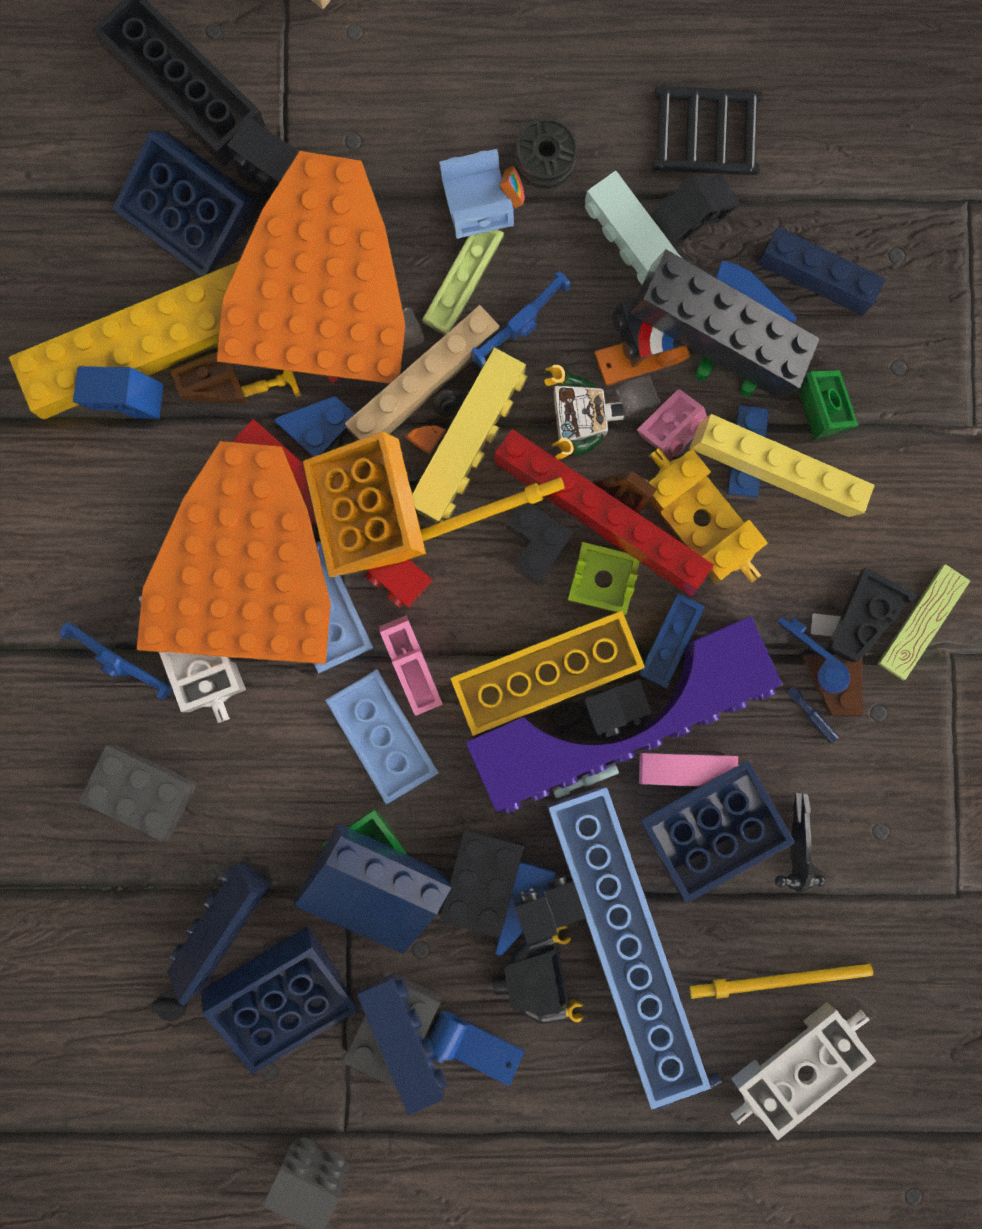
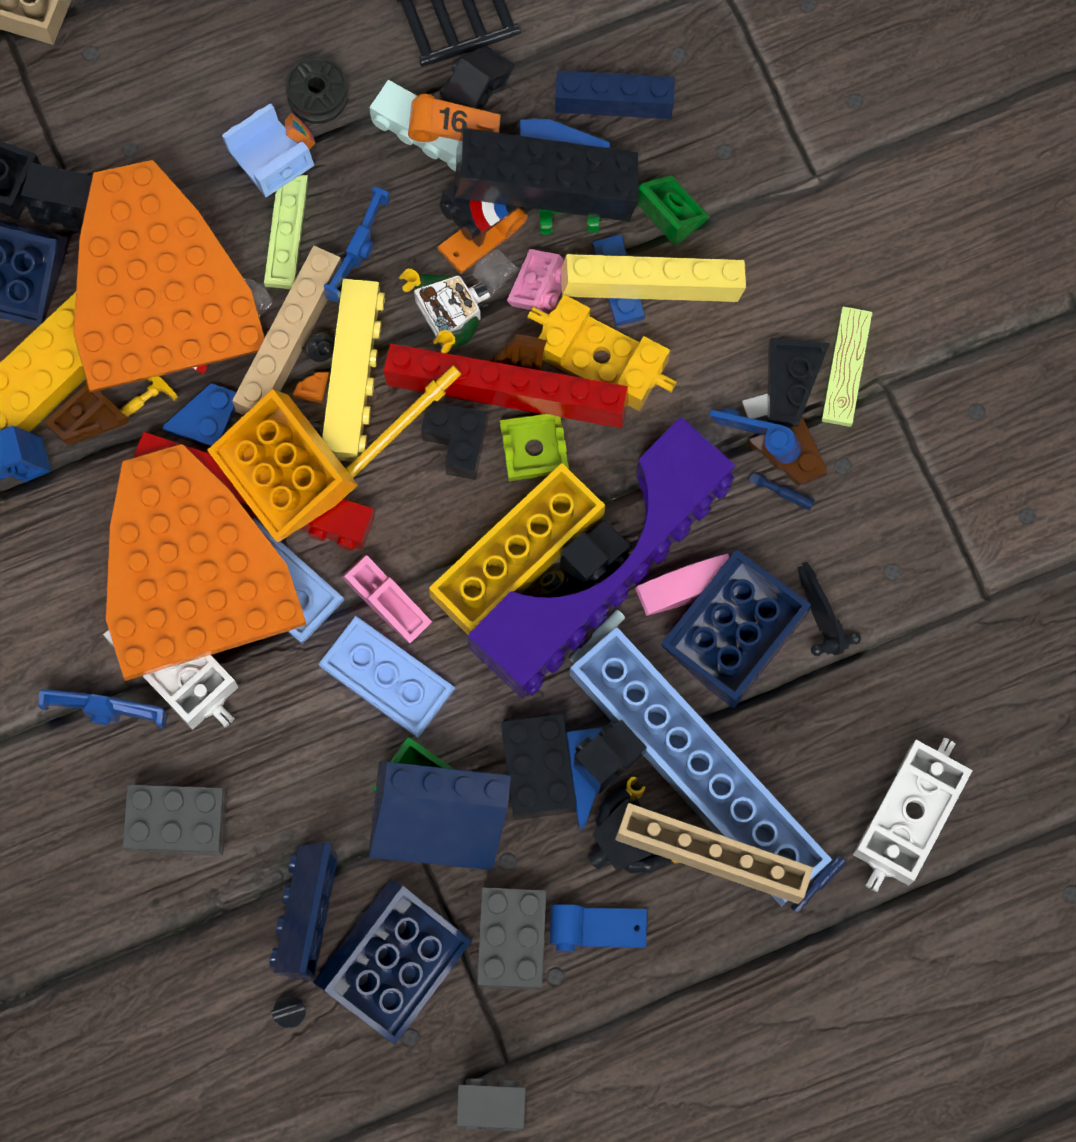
camera: 20 degrees left, 10 degrees down
(402, 1044) = (524, 933): dark blue brick -> none
(605, 1048) = (714, 853): none -> tan brick
(649, 230) = (440, 118): none -> orange door
(671, 640) = (621, 477): blue plate -> none
(721, 988) = (807, 774): yellow bar -> none

